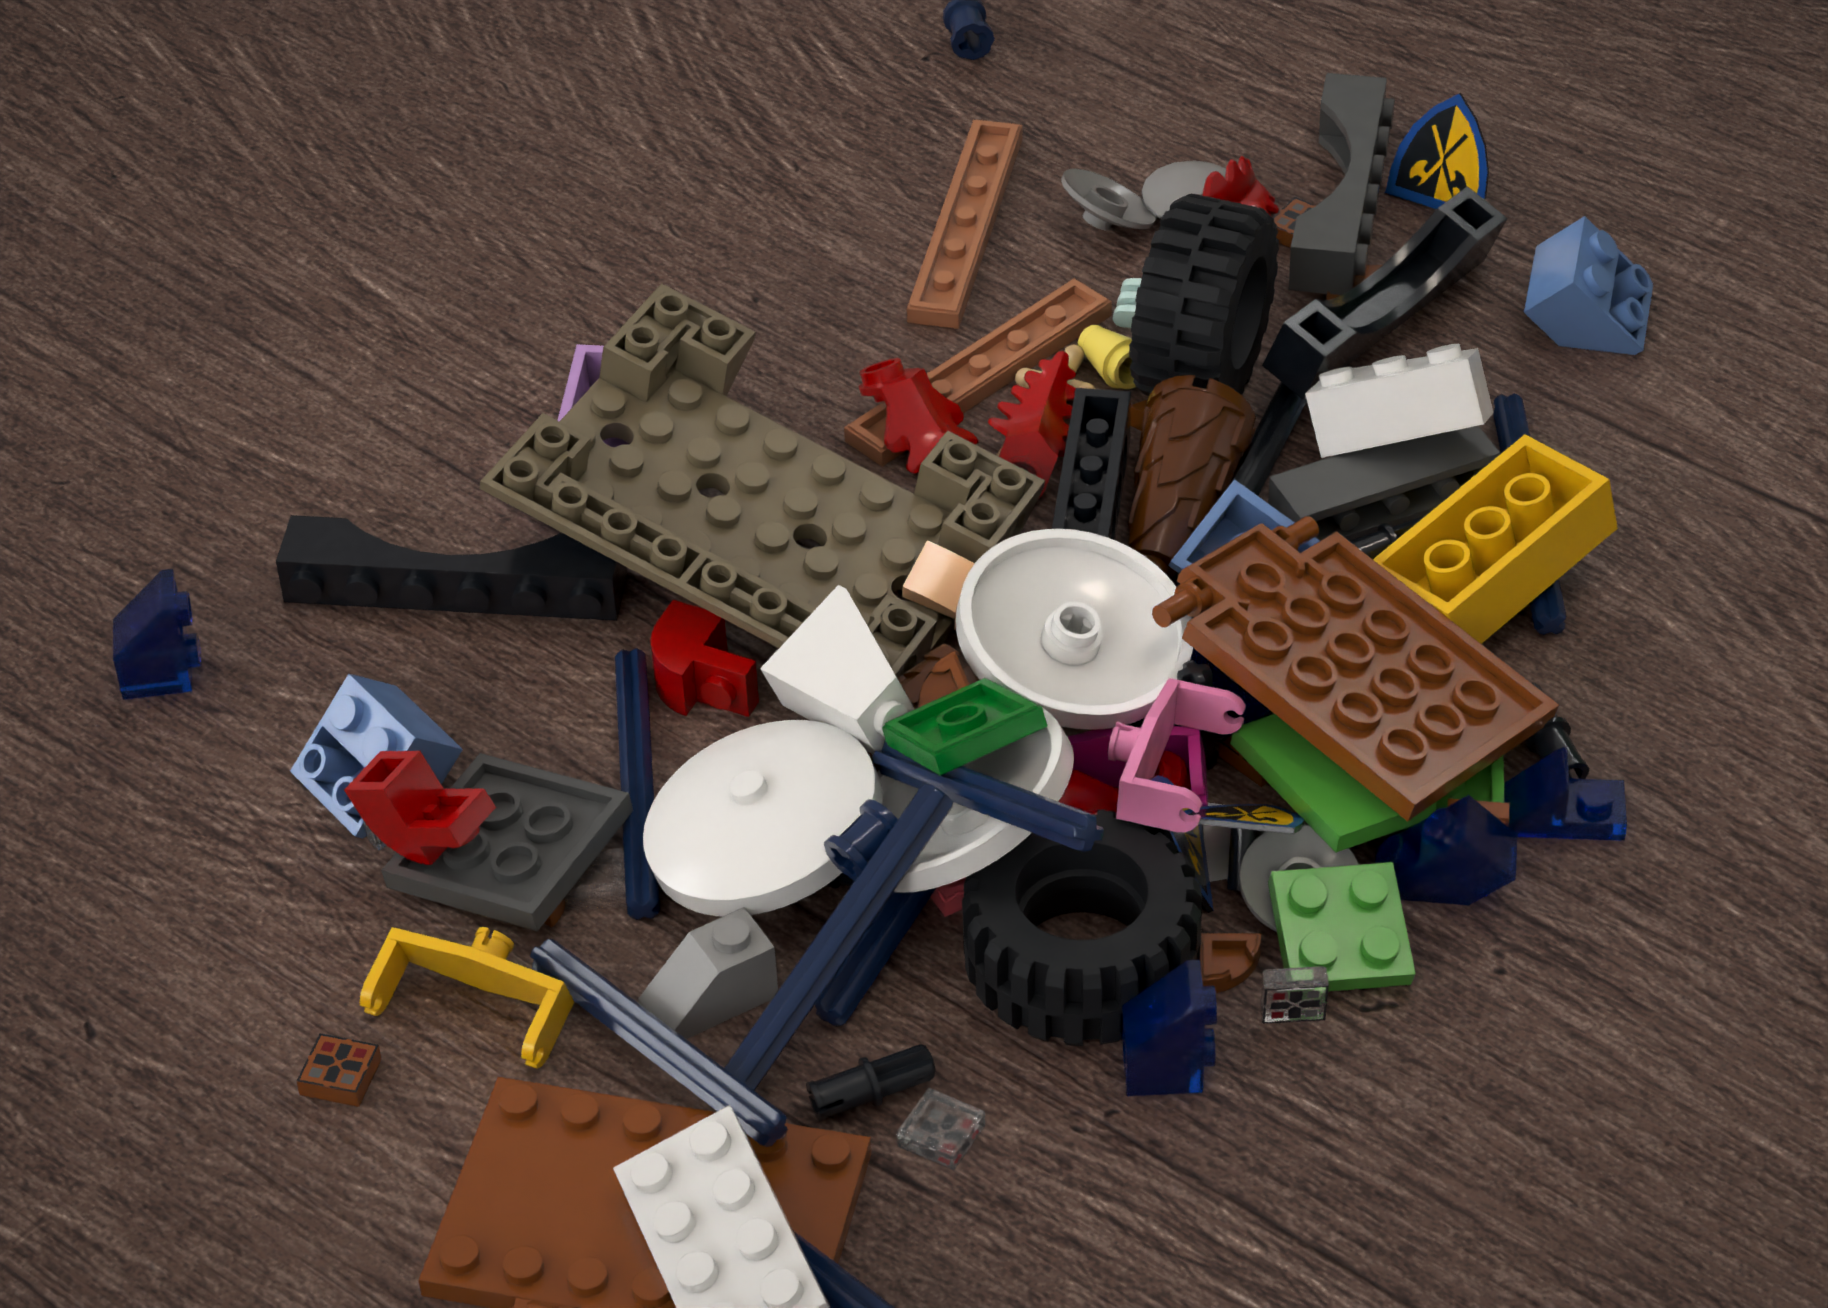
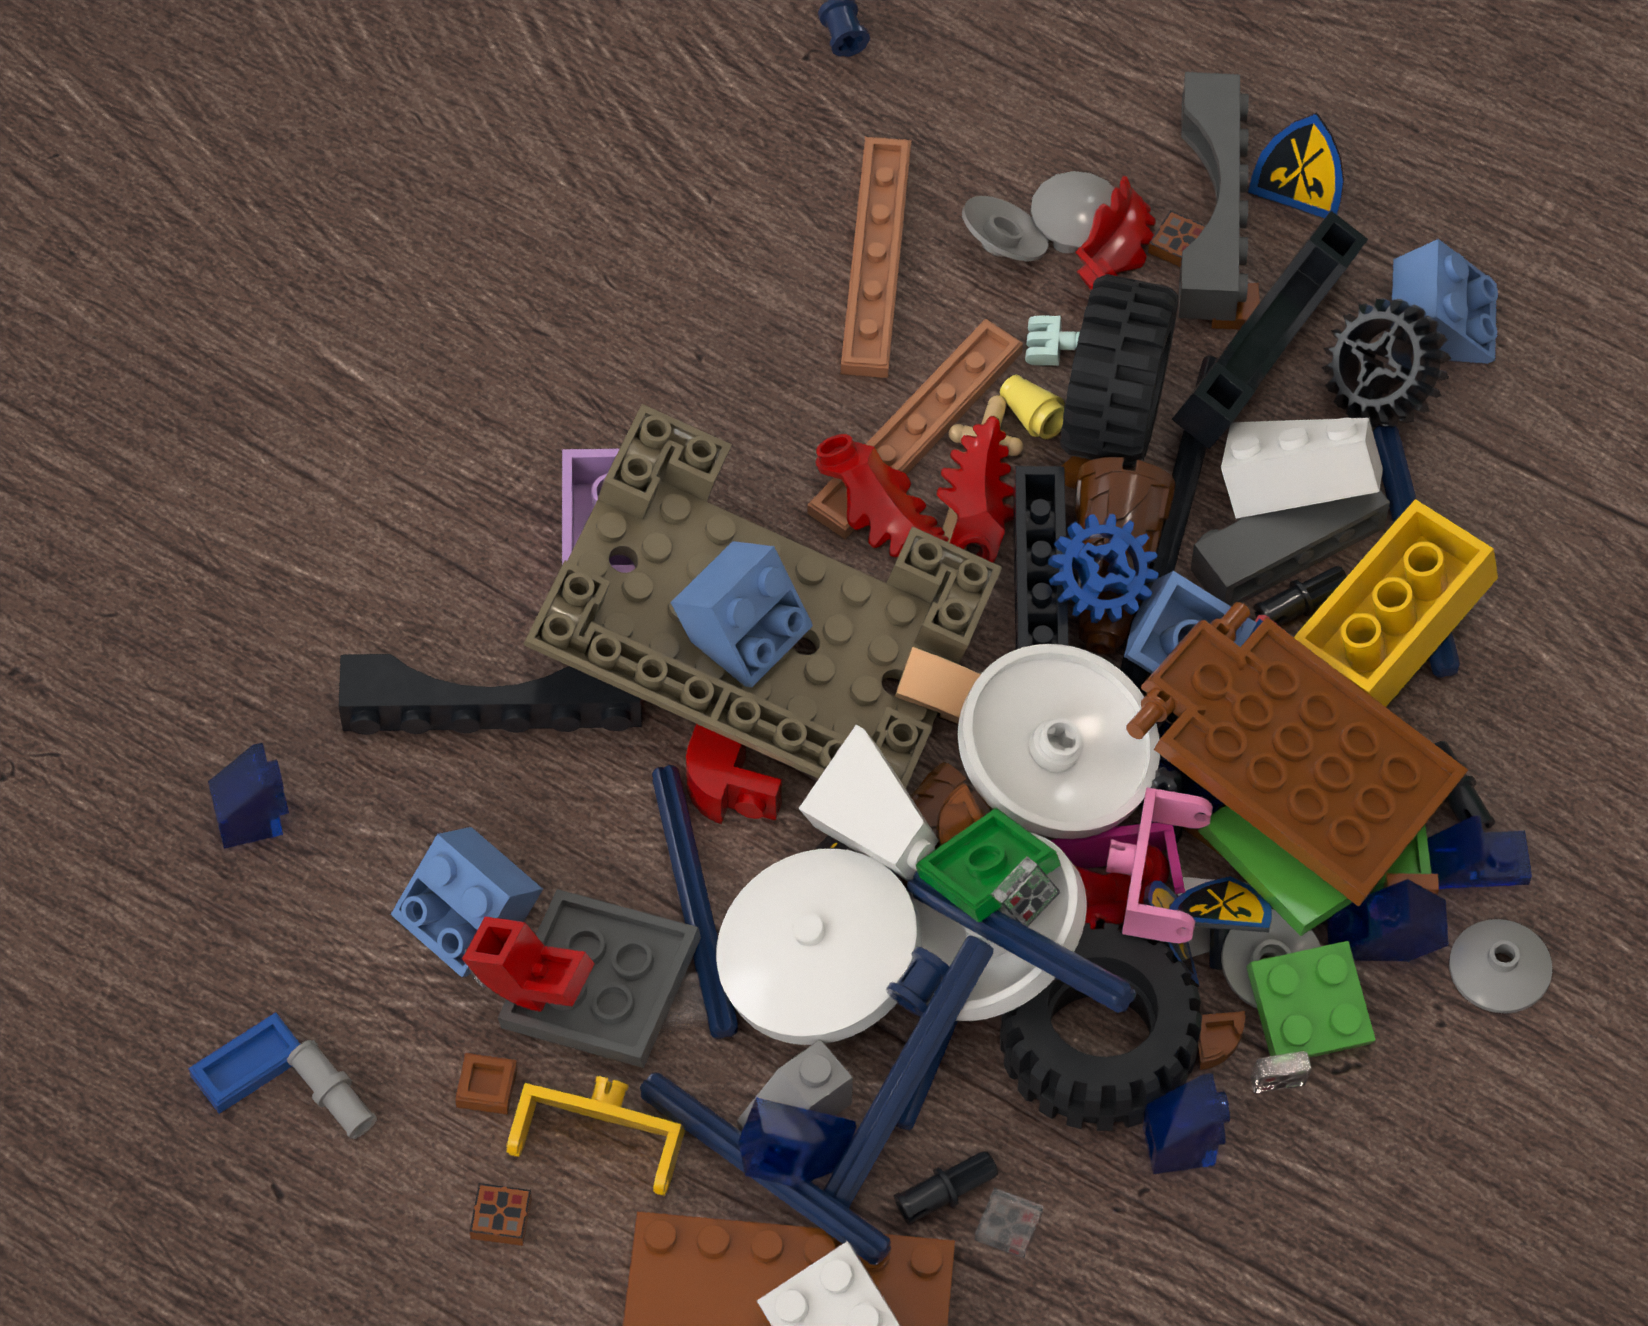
camera: 10 degrees left, 15 degrees up
(89, 899) = (245, 1063): none -> blue tile
(176, 928) = (331, 1089): none -> light grey pin
(353, 939) = (486, 1083): none -> dark orange tile
(692, 1006) = (792, 1143): none -> clear blue slope
(738, 485) = (743, 611): none -> medium blue slope
(999, 743) = (1025, 892): none -> clear tile
(1157, 483) = (1086, 559): none -> blue gear
(1519, 322) = (1363, 391): none -> black gear
(1580, 917) = (1497, 984): none -> light grey dish

